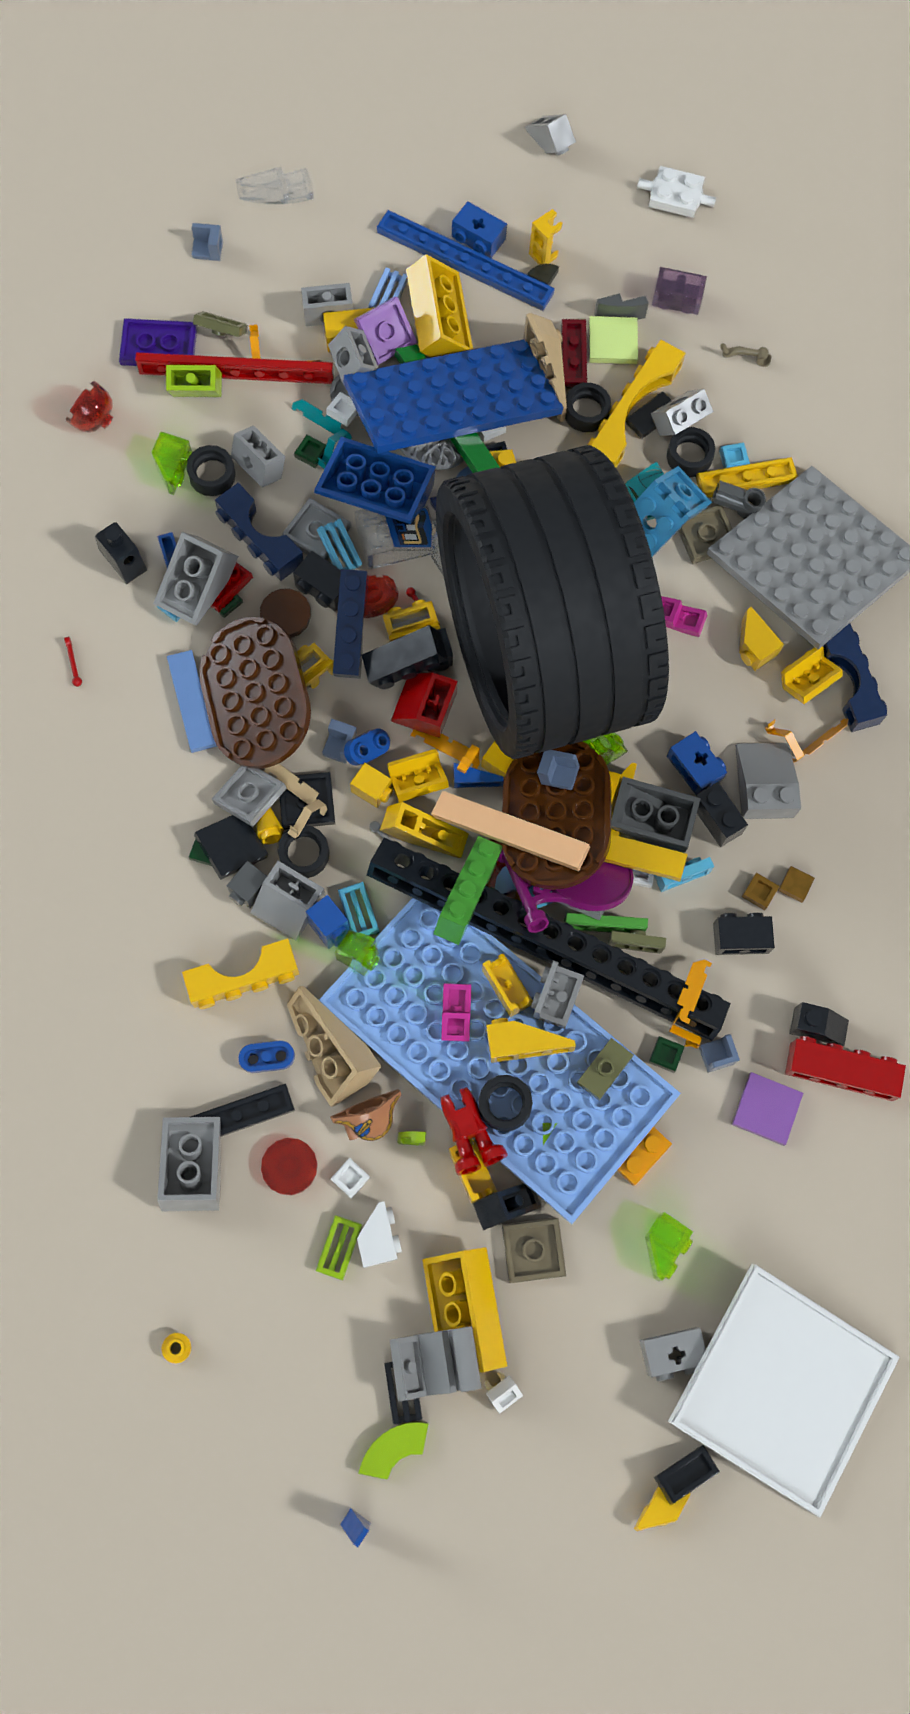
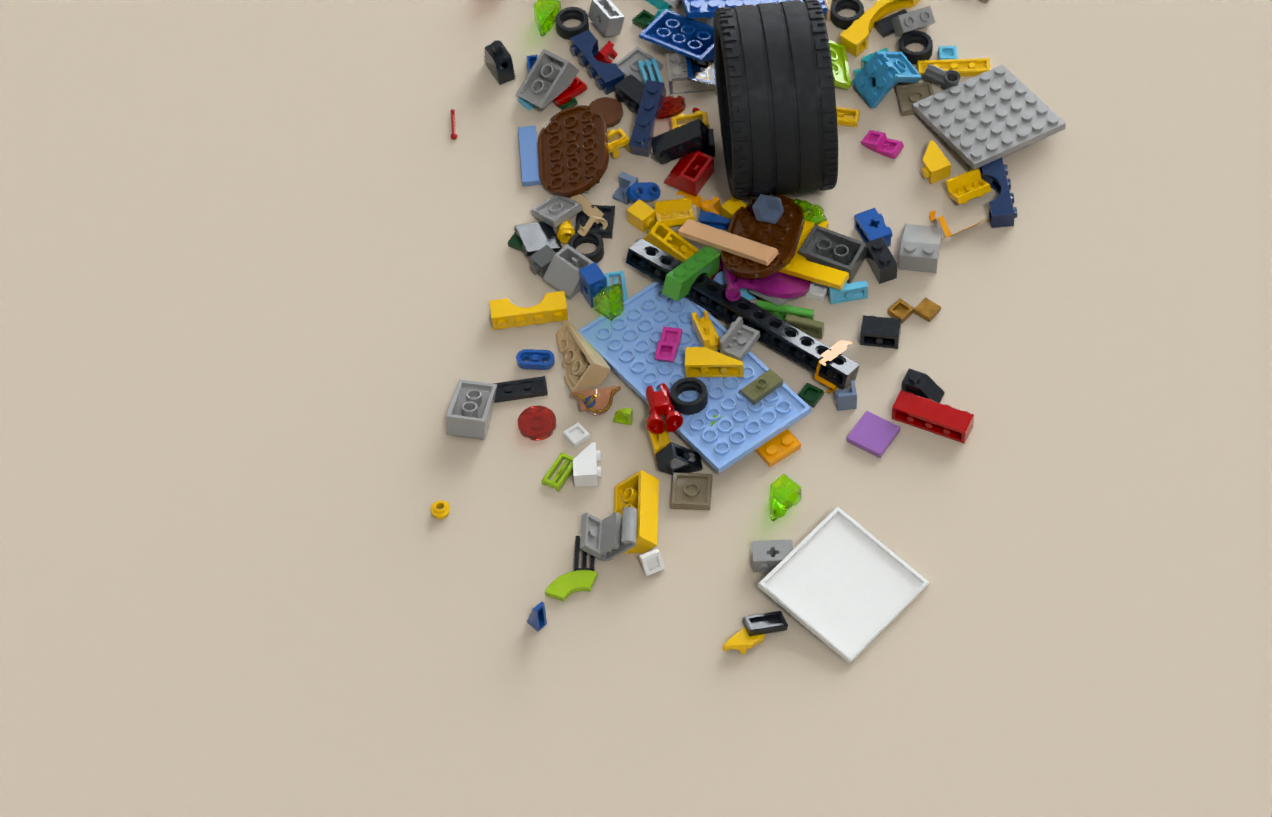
camera: 20 degrees right, 20 degrees down
(265, 514) = (605, 52): none -> red tile

